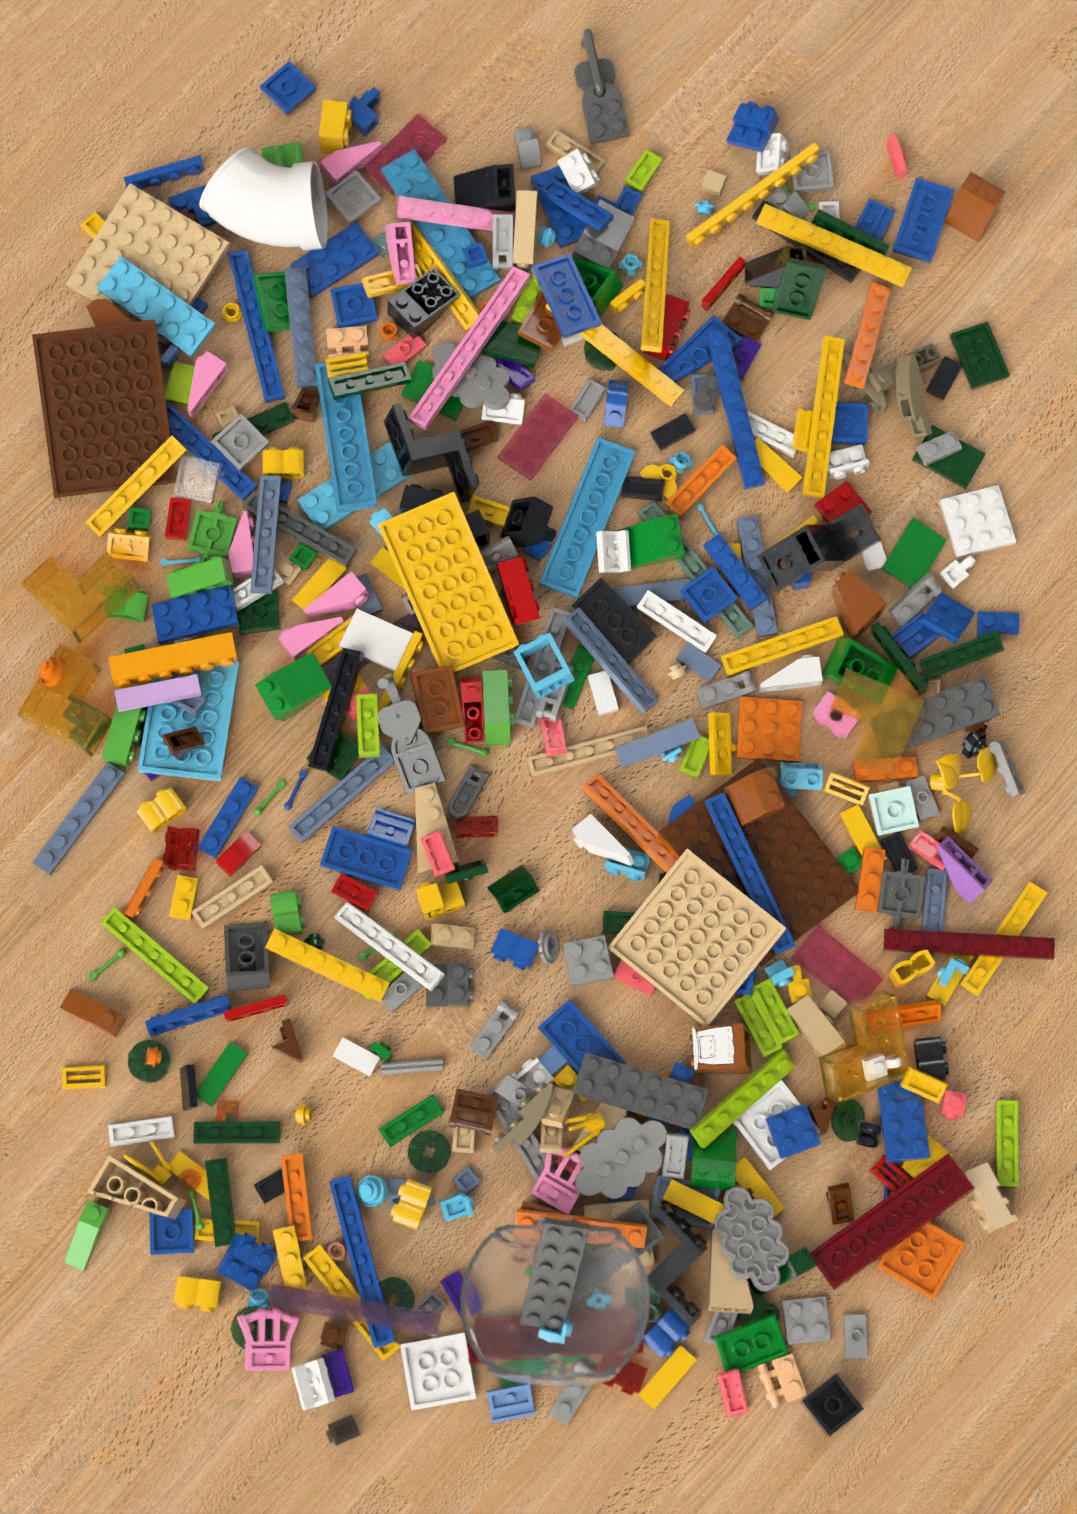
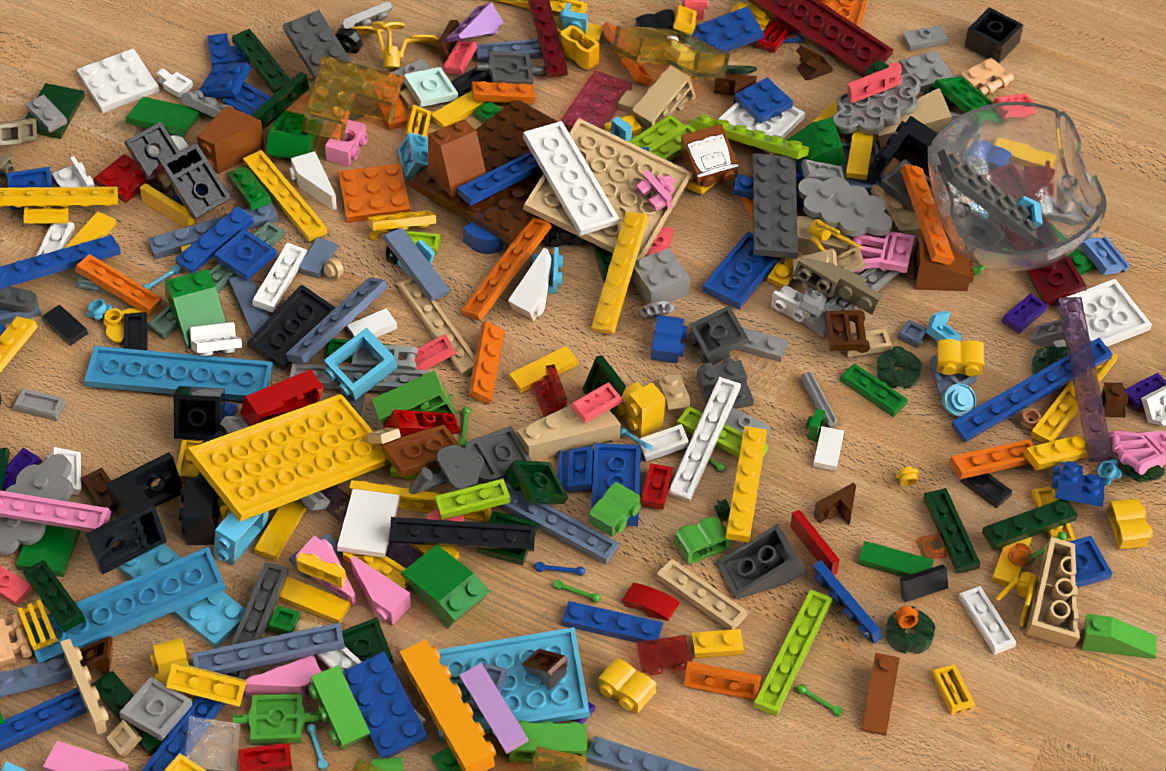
camera: 105 degrees left, 25 degrees down
(248, 481) = (206, 683): none -> yellow plate
(268, 392) = (88, 694): none -> tan plate
(323, 590) = (328, 572): none -> yellow plate
(329, 844) = (614, 509): none -> bright green brick
(377, 787) = (536, 481): none -> dark green plate
(394, 894) = (623, 432): none -> medium azure hinge
(399, 912) = (665, 442): none -> white tile
(459, 668) = (383, 435): none -> tan tile
(467, 792) = (513, 411): dark grey plate -> none
(501, 992) = (717, 335): none -> dark grey plate
(513, 831) = (533, 372): none -> yellow tile
(513, 888) = (596, 346): dark green panel -> none
(531, 781) = (486, 362): none -> orange plate
(537, 437) = (93, 435): clear pink plate -> none
(552, 1060) = (764, 291): medium blue tile -> none
(595, 922) = (619, 272): none -> yellow plate
(616, 403) = (39, 367): brick -> none
(682, 983) = (661, 197): none -> bright pink hips
(706, 898) = (570, 178): none -> white plate
(725, 690) = (343, 231): light grey plate -> none
(768, 1240) = (874, 83): none -> coral plate
(797, 615) = (249, 187): none -> green plate
(868, 1135) = (738, 54): black wheel -> none

